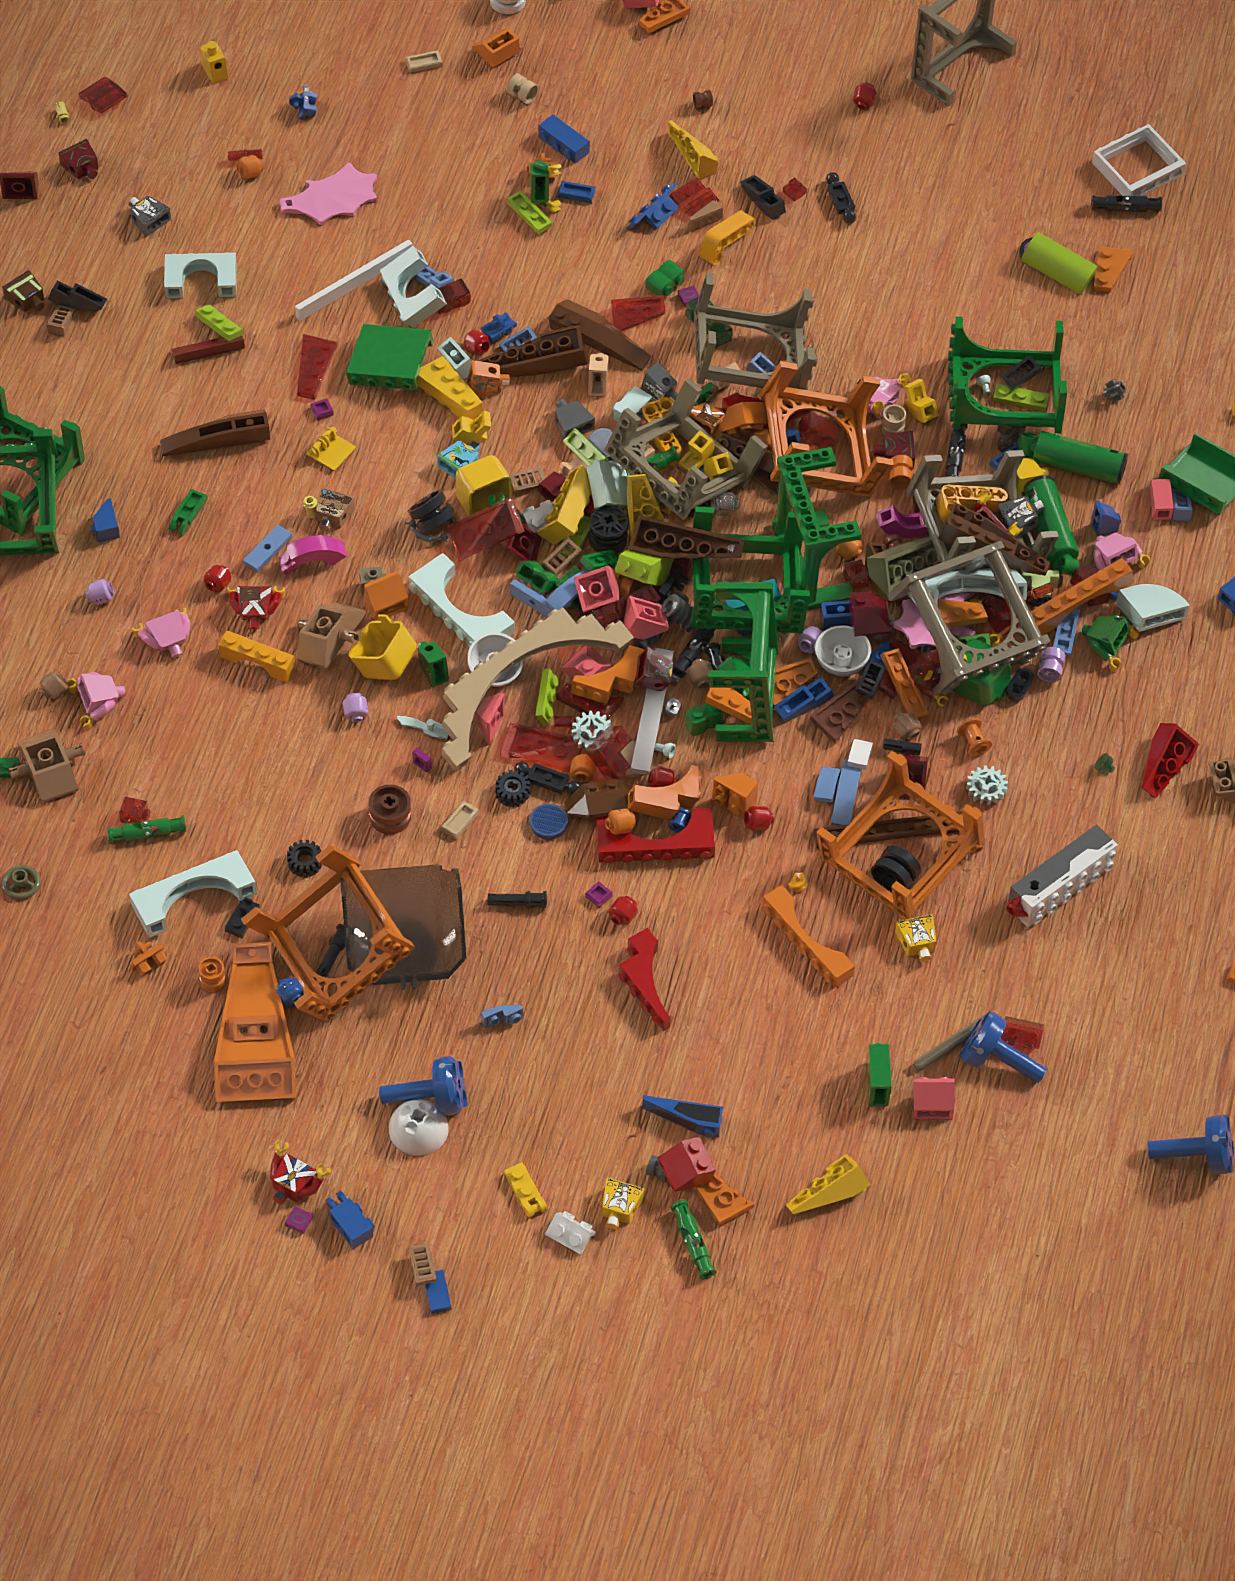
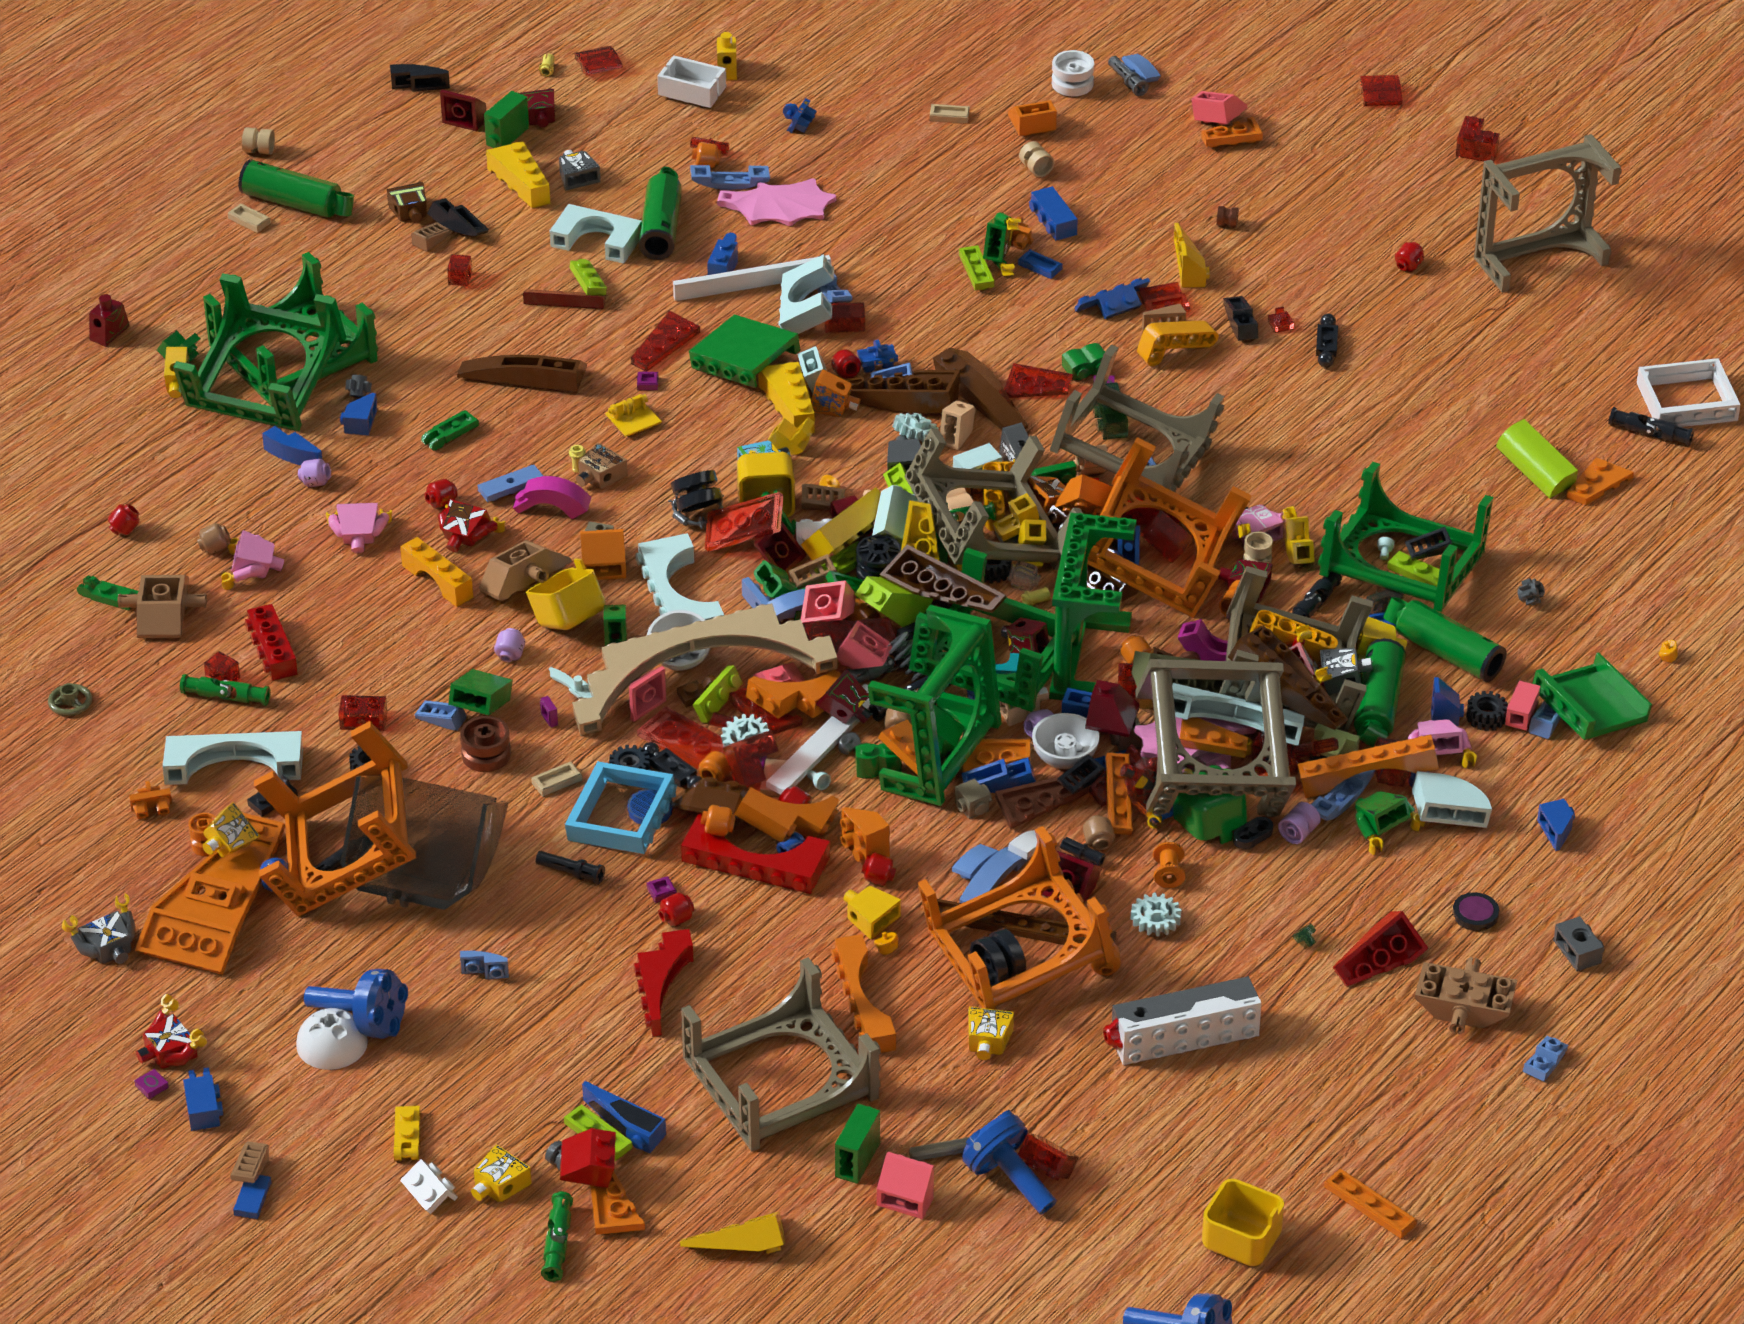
camera: 25 degrees right, 15 degrees down
(65, 184) = (506, 120): none -> green brick
(66, 573) = (290, 447): none -> blue slope
(88, 493) = (358, 386): none -> dark grey gear
(104, 233) = (520, 172): none -> yellow wedge
(106, 348) = (459, 270): none -> clear red brick
(159, 770) = (271, 642): none -> red brick
(187, 1098) = (106, 937): none -> dark grey torso
(198, 95) = (691, 81): none -> white piece
(237, 969) = (229, 832): none -> yellow torso
(246, 240) = (660, 215): none -> green piece
(272, 812) = (358, 710): none -> clear red brick
(281, 184) = (729, 180): none -> medium blue slope
(321, 267) = (724, 256): none -> blue hinge
(342, 796) = (448, 716): none -> medium blue slope
(360, 762) = (480, 692): none -> green brick
(523, 701) = (692, 691): none -> reddish brown plate
(524, 463) = (830, 481): none -> light orange piece
(535, 862) = (638, 842): none -> medium azure window
(566, 388) = (913, 426): none -> light aqua gear
(667, 1132) = (583, 1119): none -> lime plate
(740, 521) = (1036, 596): none -> light yellow pin
(761, 564) = (1026, 634): none -> dark red torso
(772, 857) = (872, 910): none -> yellow torso
(773, 964) = (797, 1008): none -> dark tan arch
(795, 727) = (972, 798): none -> dark tan brick
(1139, 504) = (1486, 702): none -> black tyre
(1195, 1039) = (1242, 1222): none -> yellow piece
(1215, 697) = (1475, 911): none -> tile

